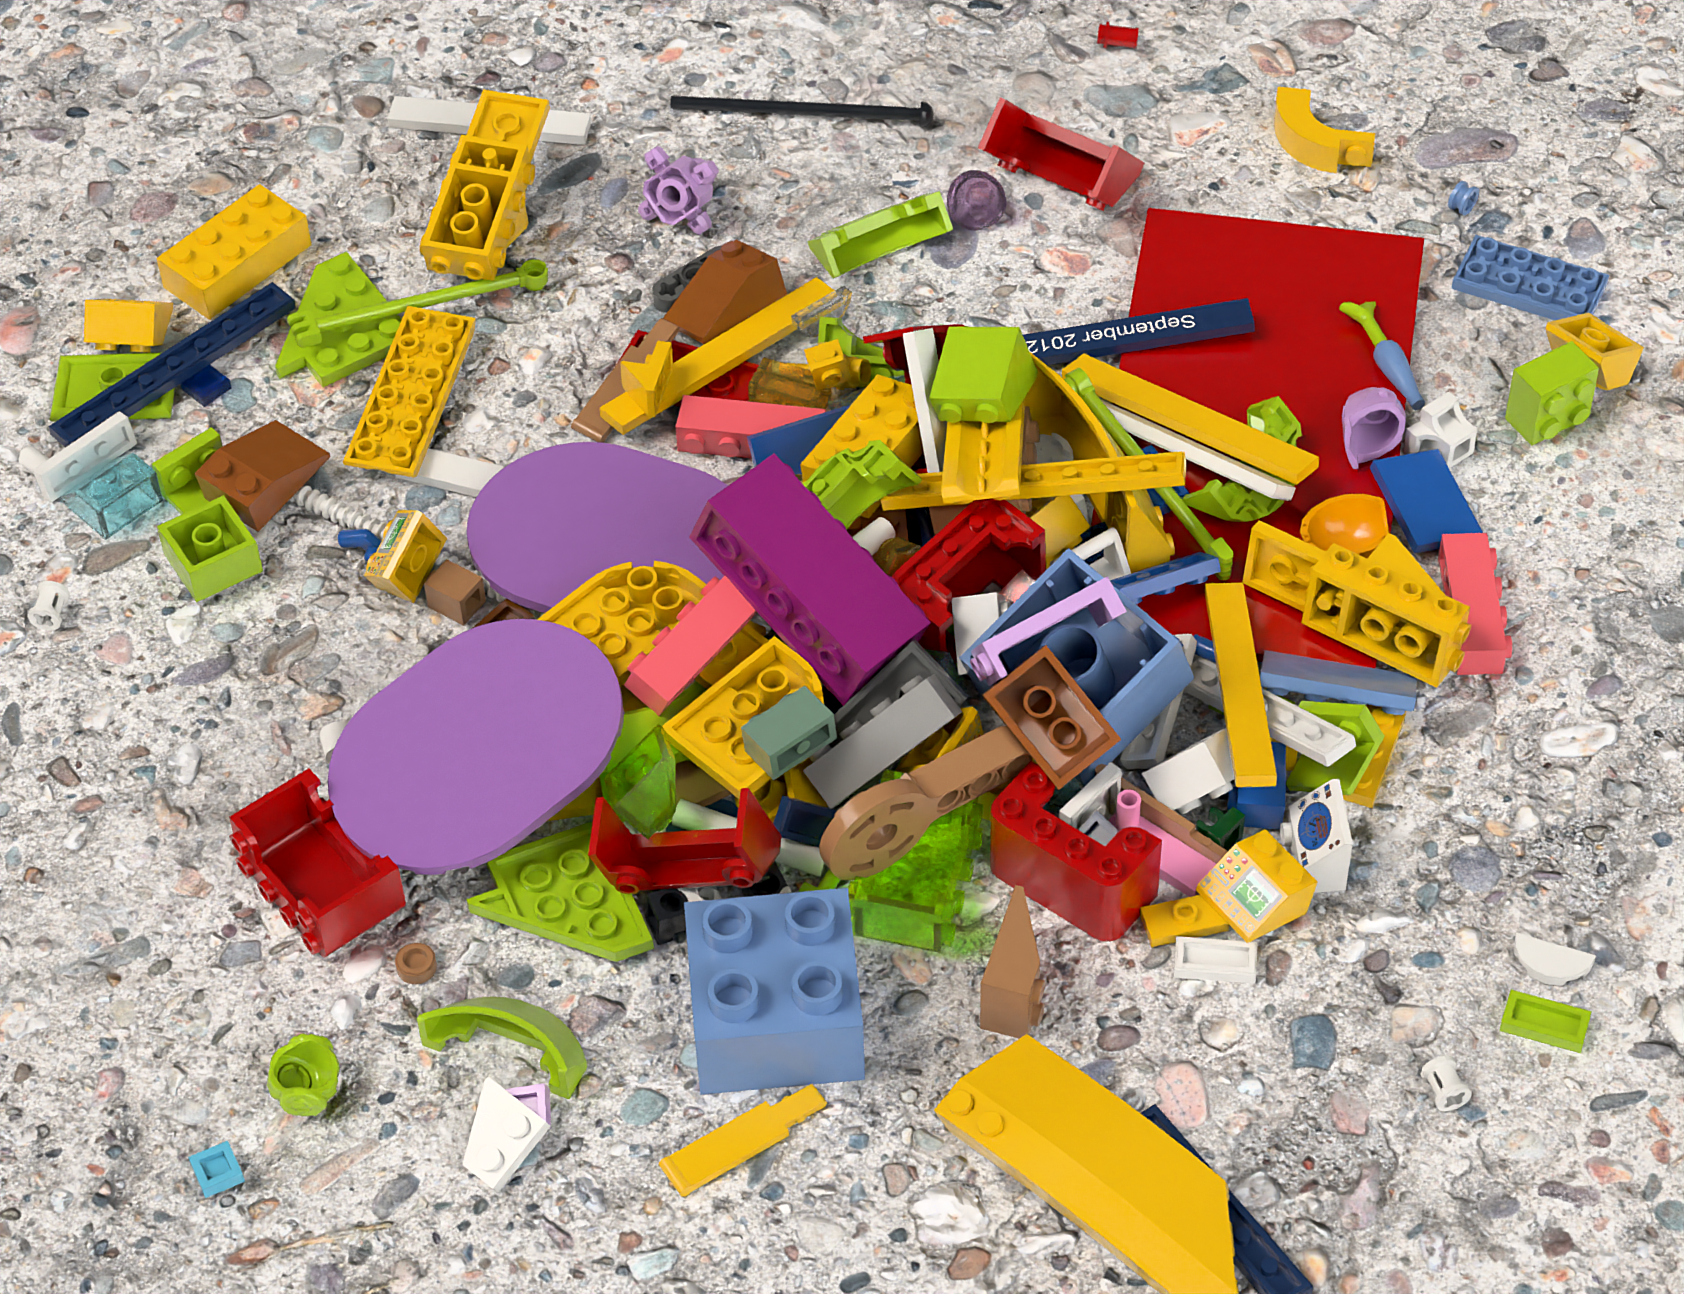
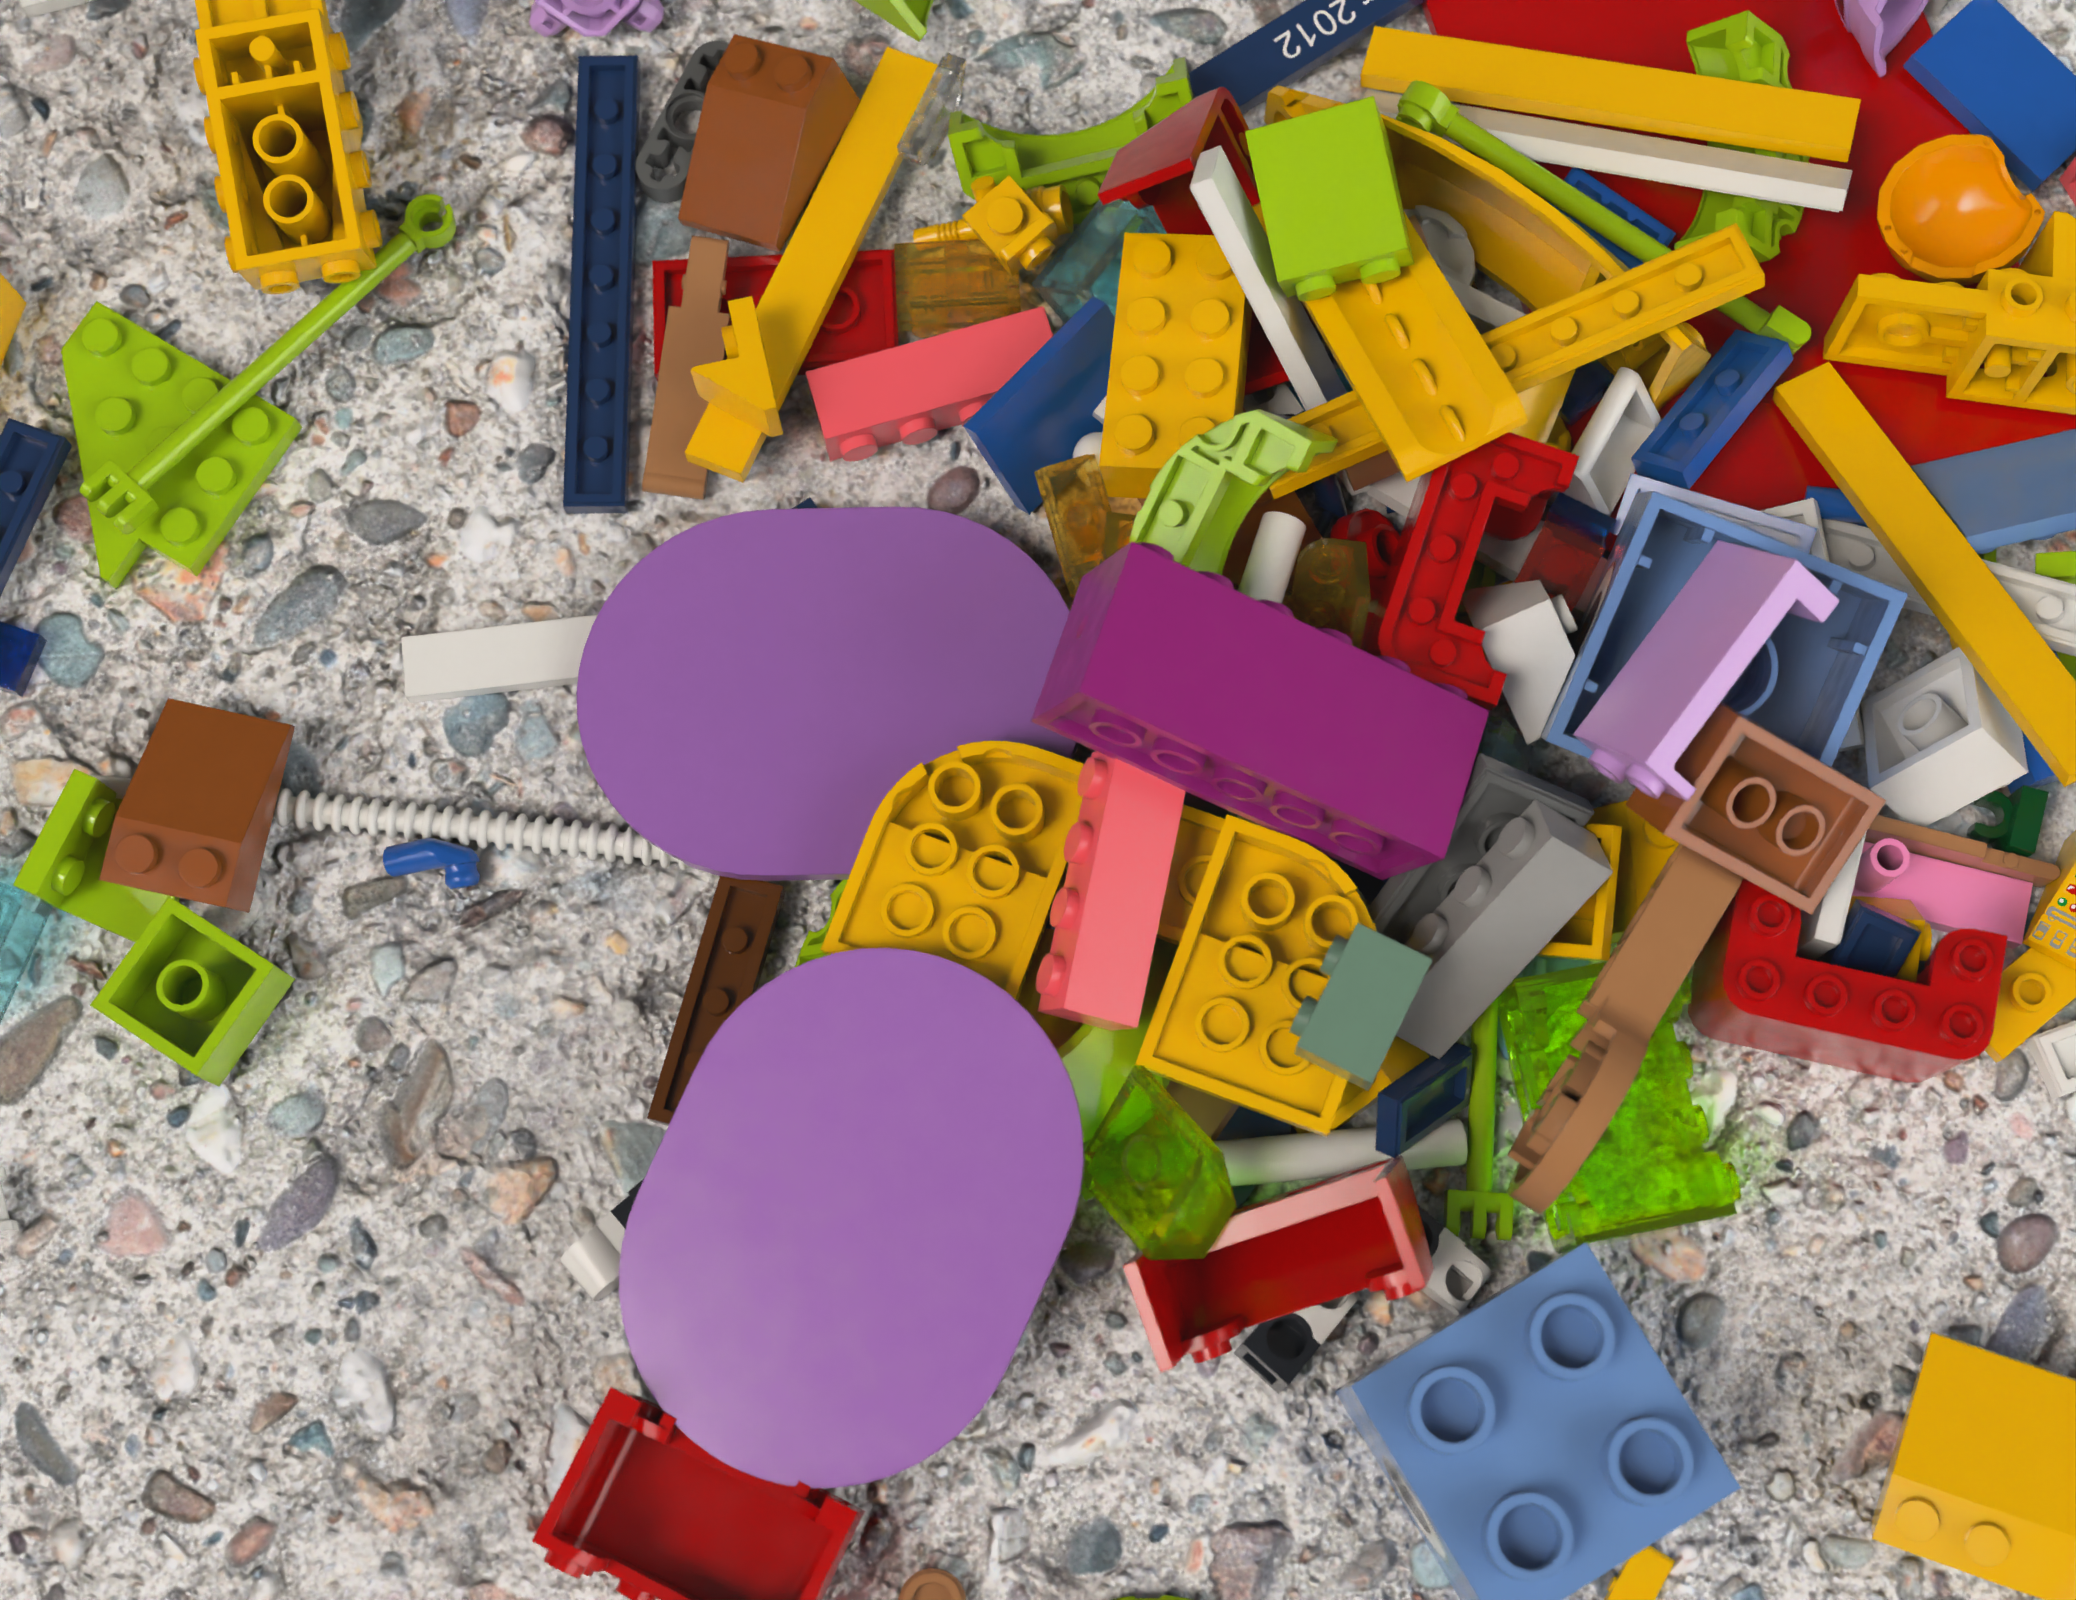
camera: 25 degrees left, 25 degrees up
(405, 555) = (521, 875): yellow slope -> none
(411, 392) = (356, 543): yellow plate -> none
(454, 592) = (628, 893): medium nougat brick -> none
(563, 897) = (1092, 1390): lime wing -> none
(604, 334) = (602, 286): none -> dark blue tile
(1012, 981) = (1859, 1230): medium nougat slope -> none

